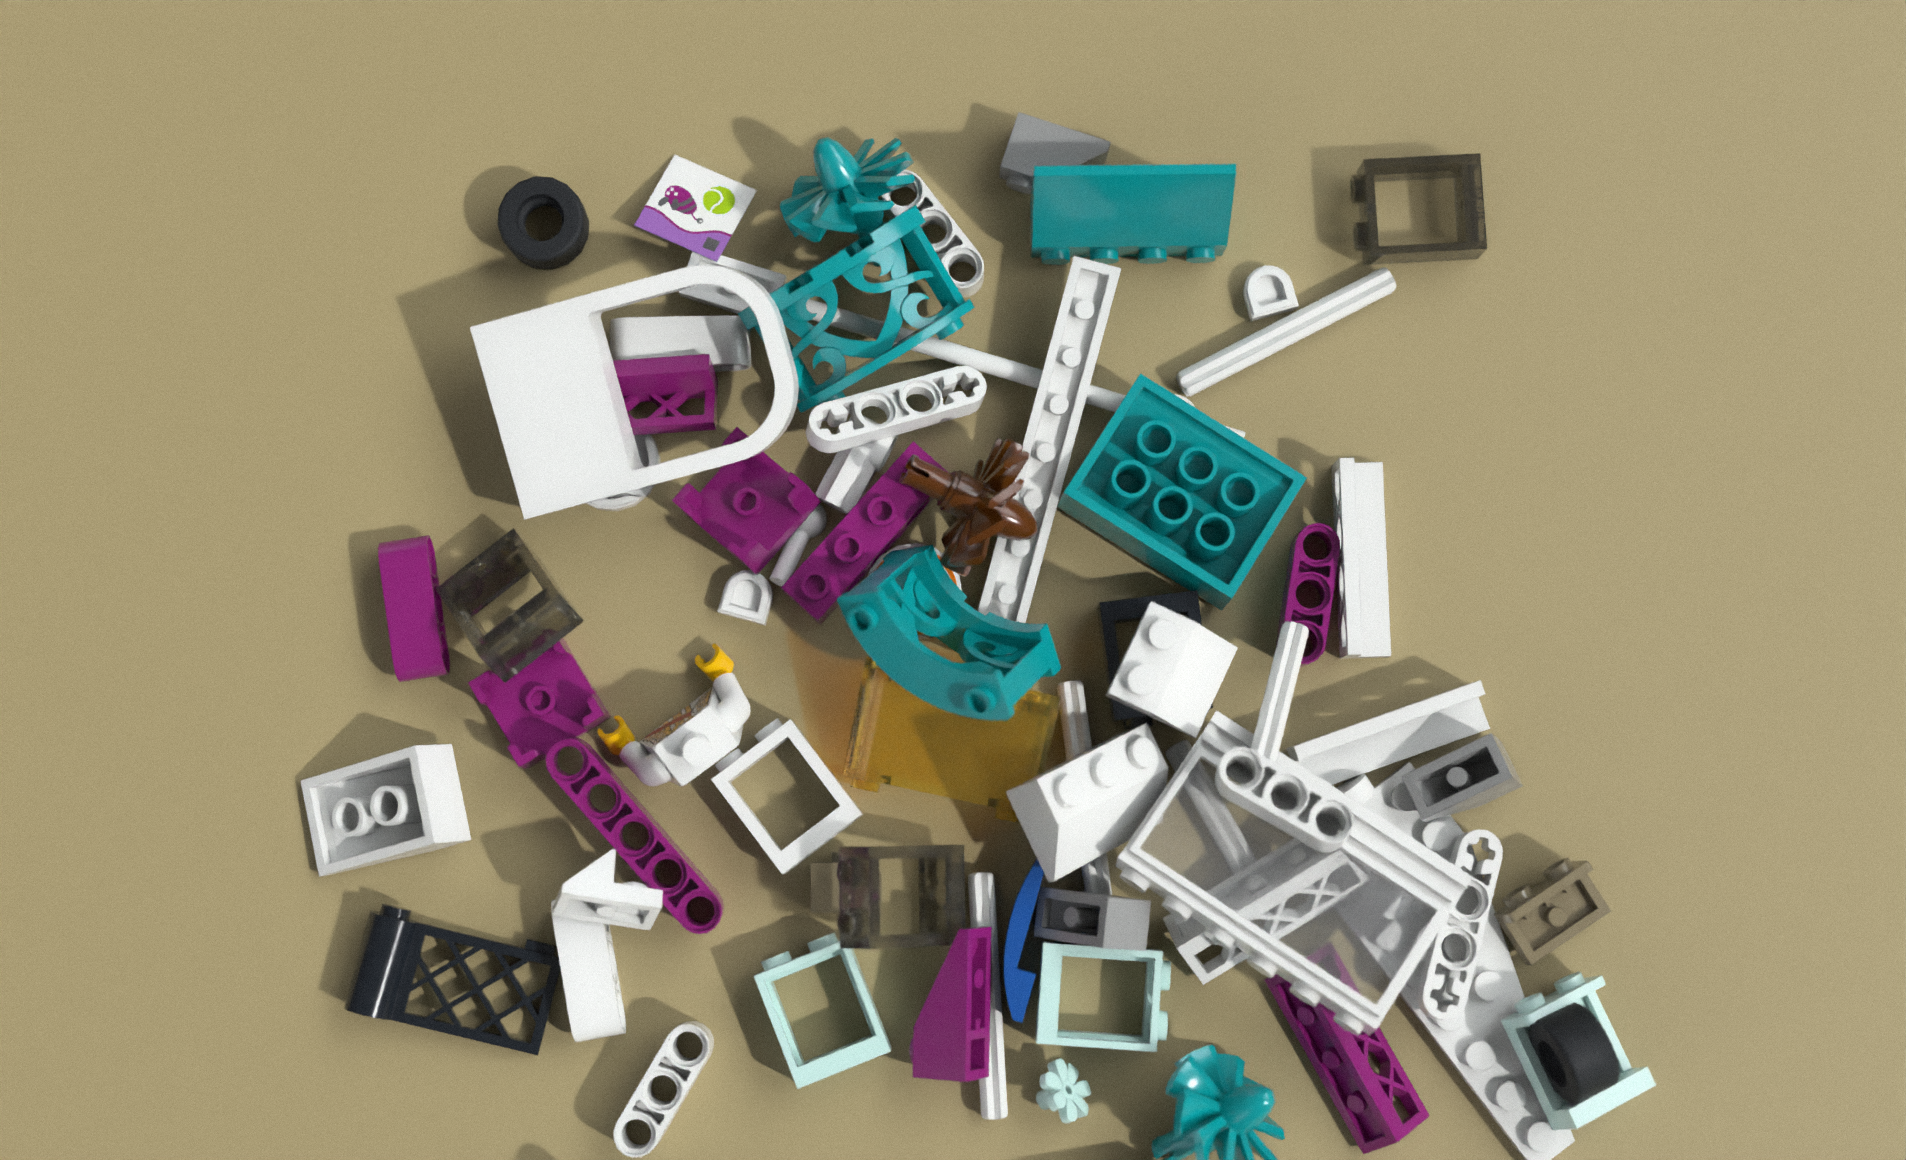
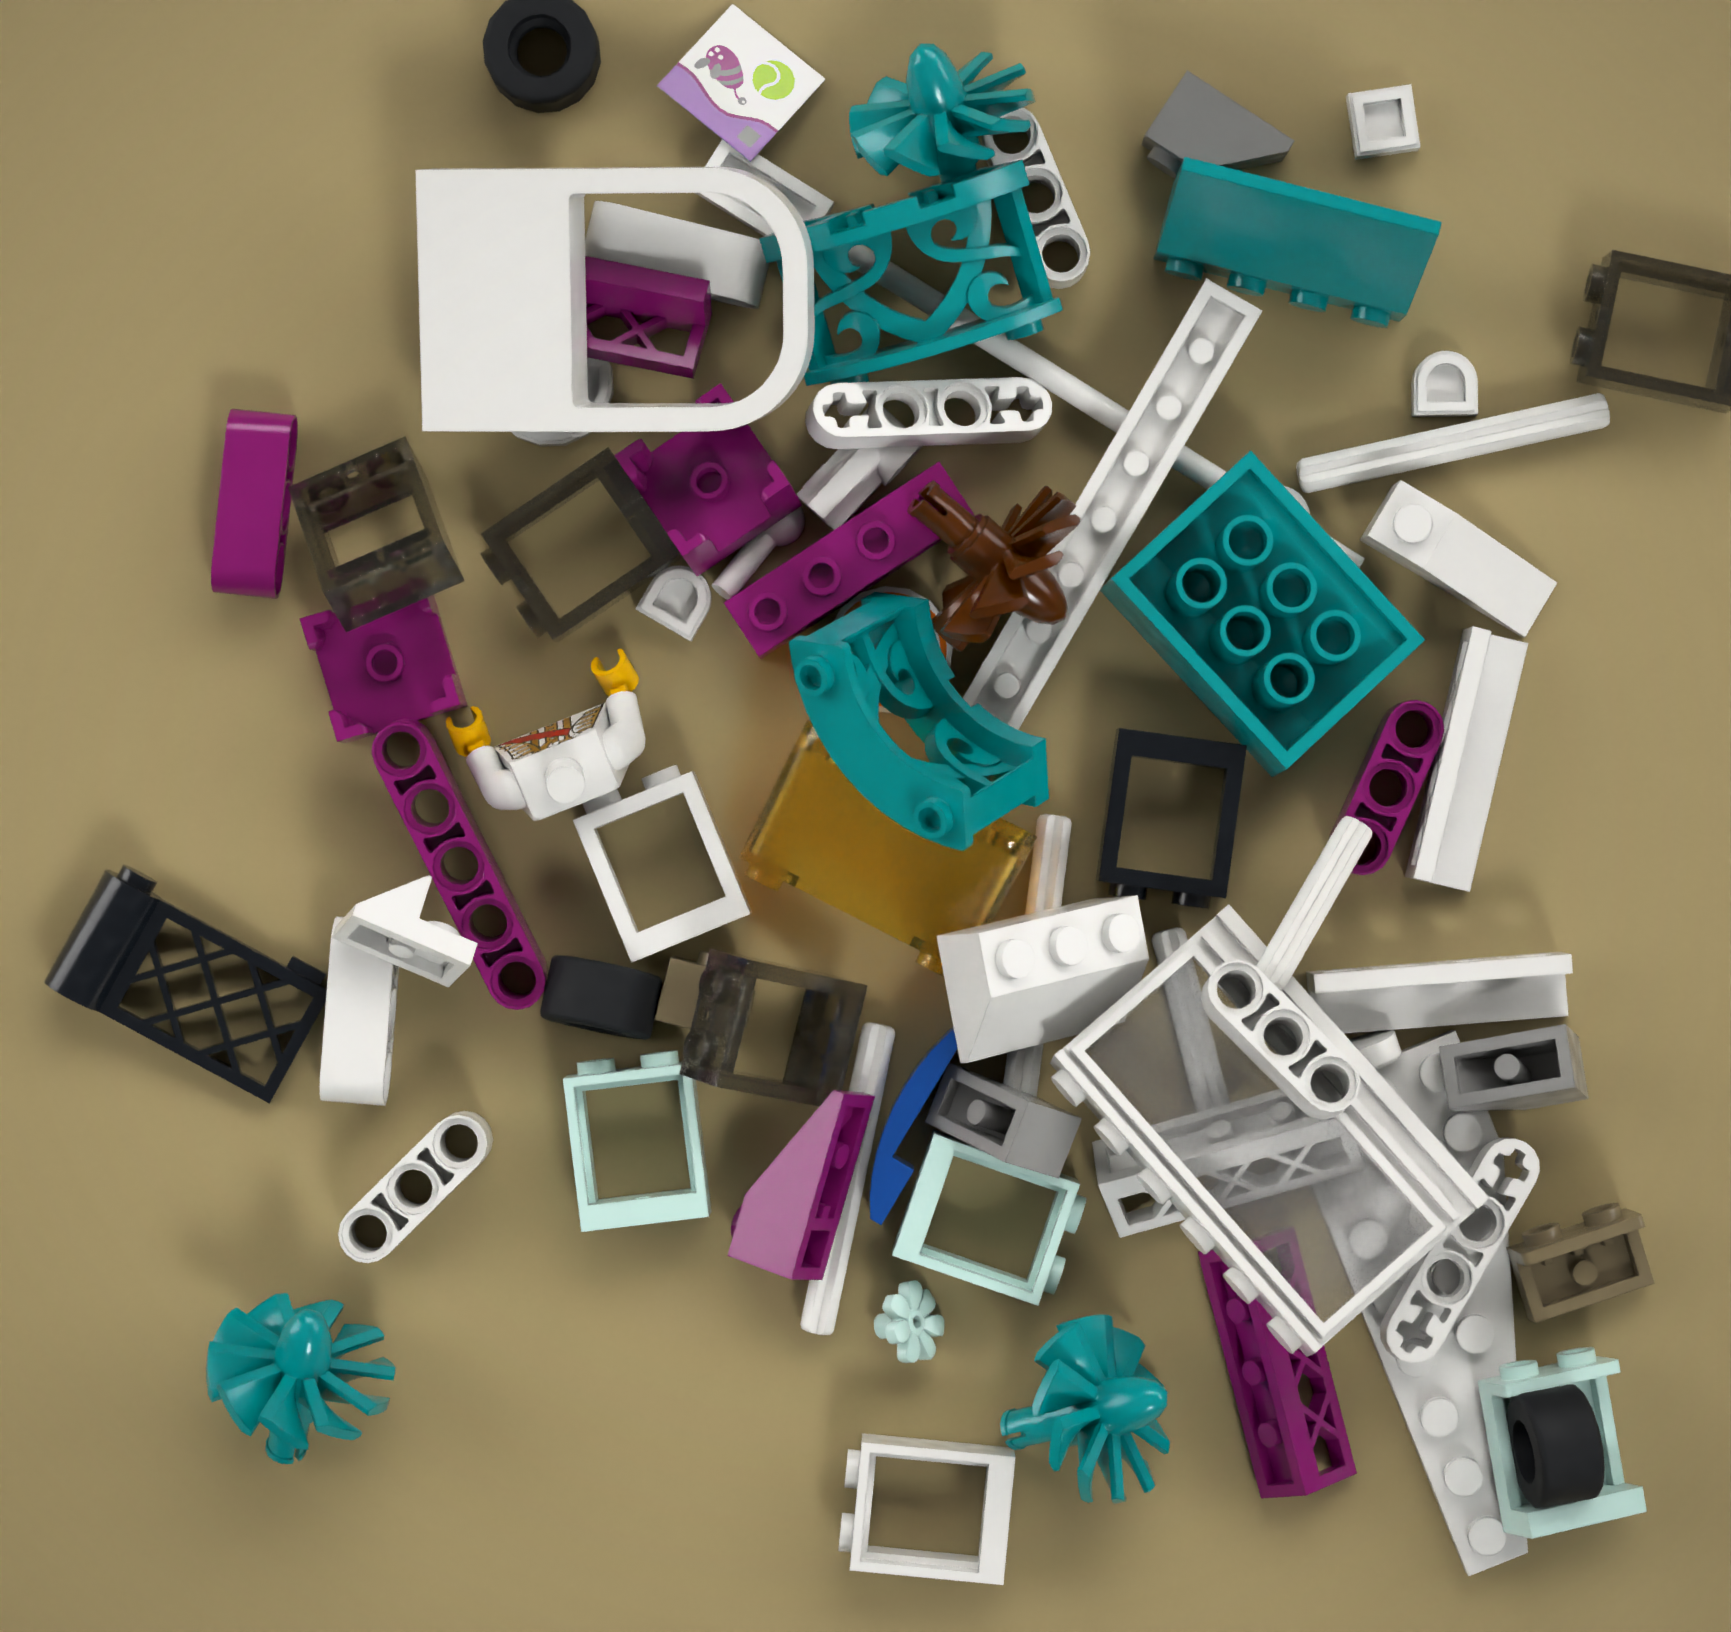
camera: 15 degrees right, 5 degrees up
(385, 808) = (156, 747): white slope -> none
(612, 603) = (507, 565): none -> clear smoke window
(766, 907) = (601, 997): none -> black tyre
(1170, 115) = (1383, 122): none -> white tile
(1172, 669) = (1186, 838): white slope -> none
(1313, 413) = (1458, 558): none -> white slope

